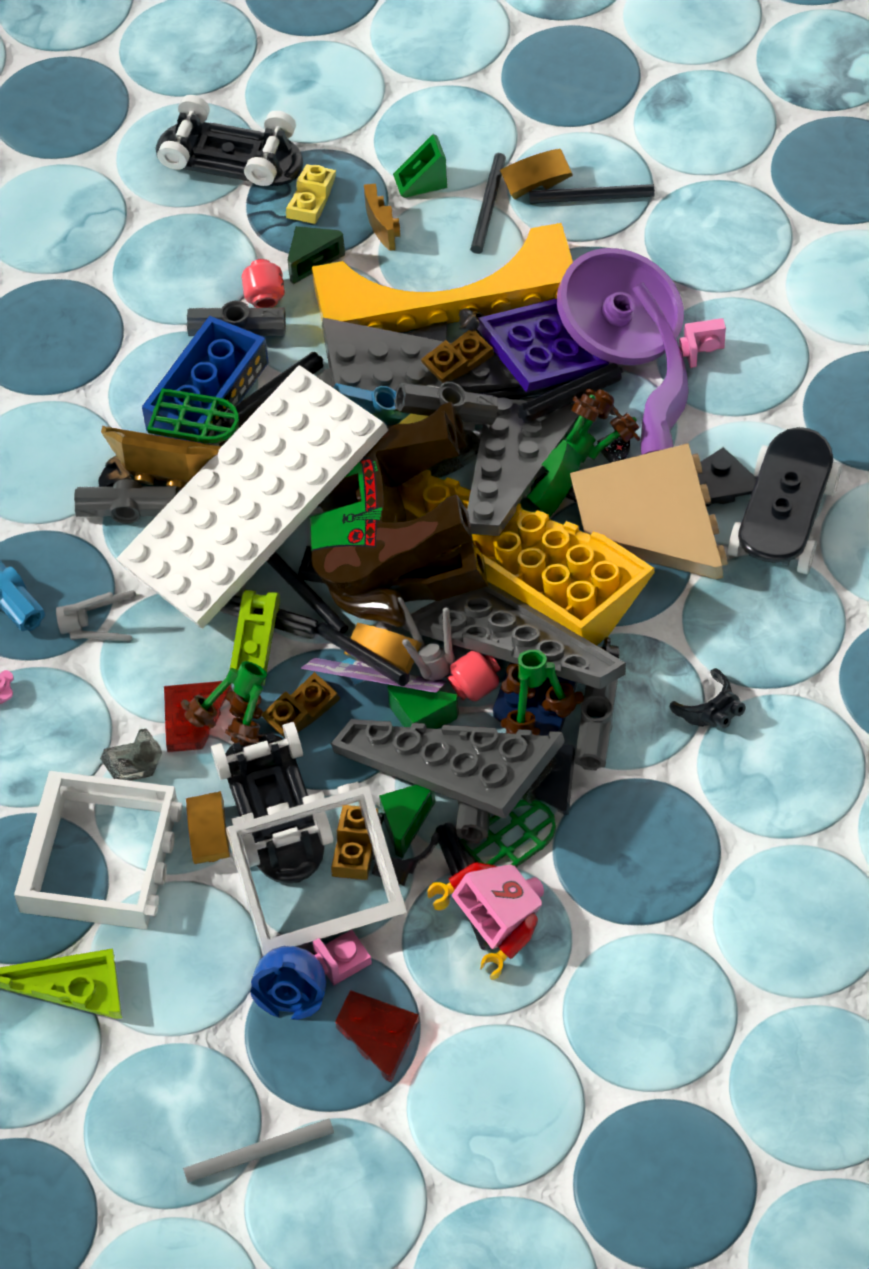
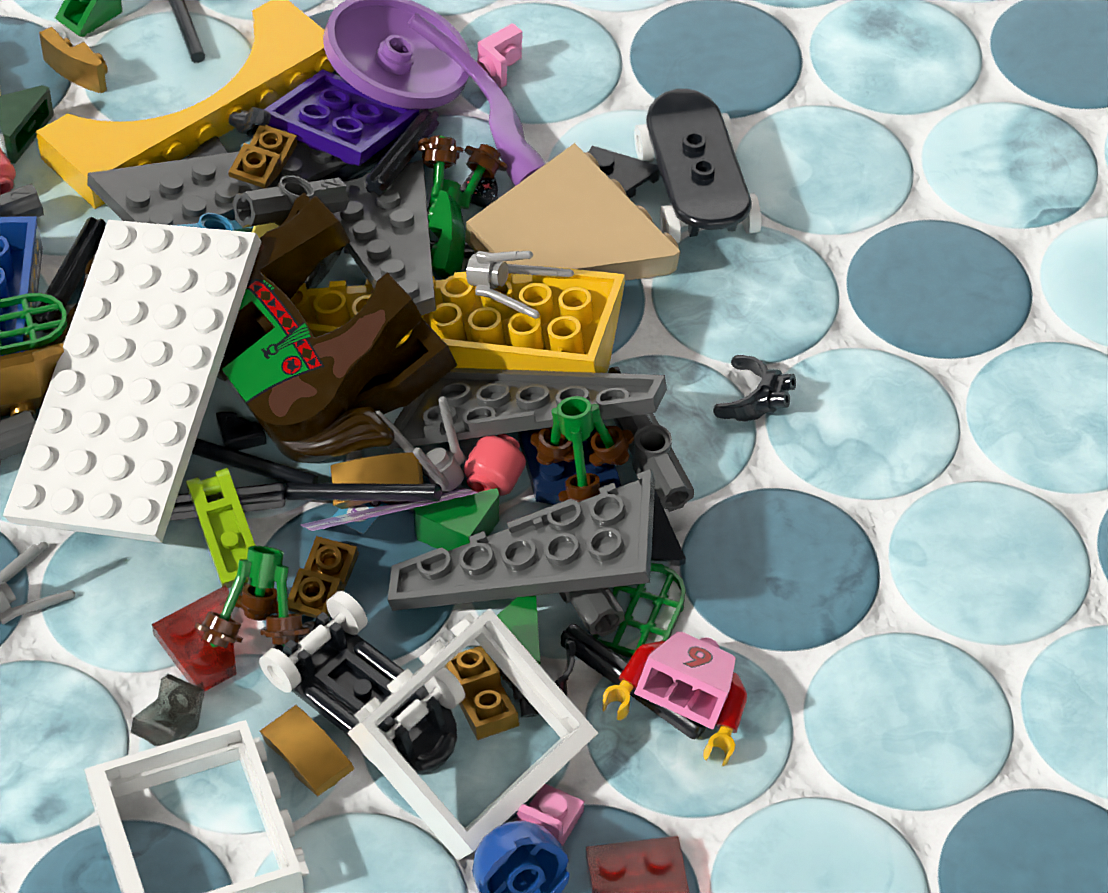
camera: 35 degrees left, 5 degrees down
(556, 524) = (489, 271): none -> light grey plant

